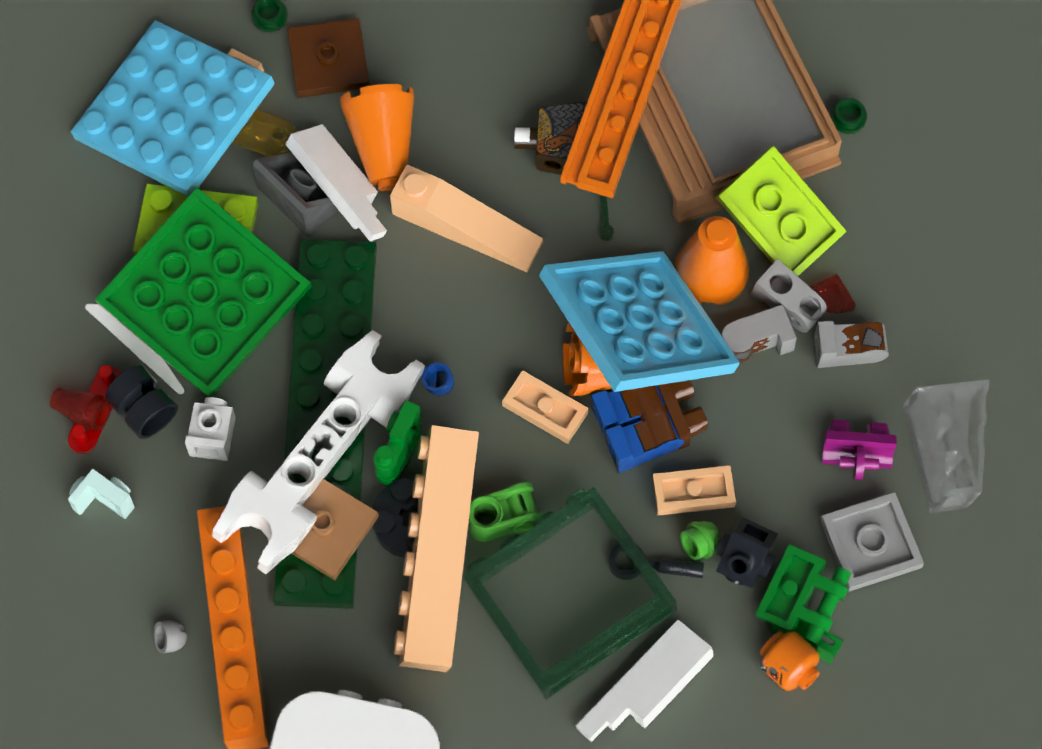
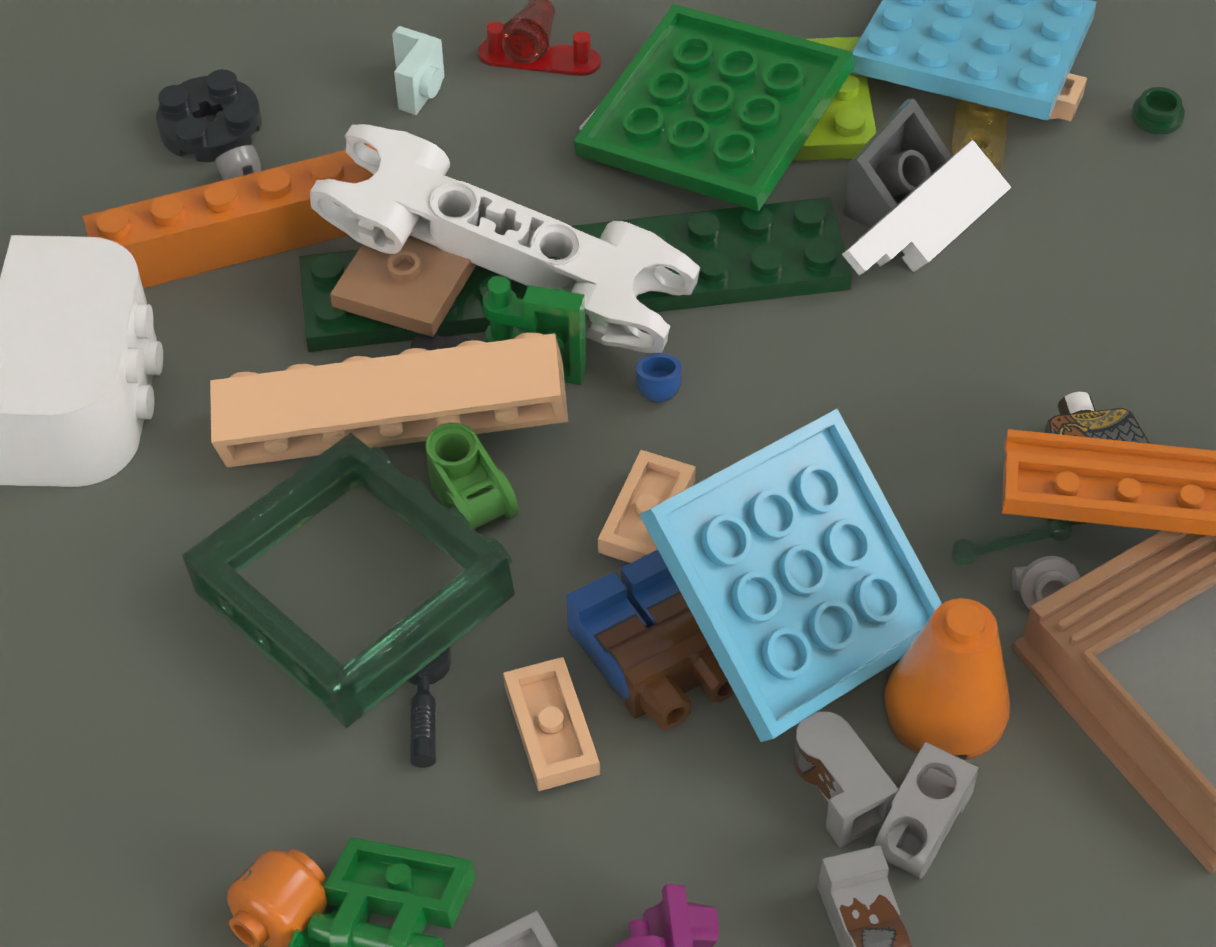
camera: 80 degrees right, 15 degrees down
(86, 644) = (218, 94): none -> black plate
(145, 406) = (548, 77): black wheel -> none
(211, 441) = (528, 154): white brick -> none
(328, 57) = (1121, 185): reddish brown plate -> none
(381, 130) = (1019, 241): orange cone -> none
(461, 218) = (919, 366): light nougat slope -> none
(643, 192) = (1042, 578): none -> light grey plate
(650, 682) = (230, 715): white piece -> none
(700, 539) = (469, 744): bright green plate -> none
(746, 553) = (448, 801): black brick -> none
(780, 212) = (1064, 763): lime plate -> none
(834, 295) = (954, 885): clear red tile -> none

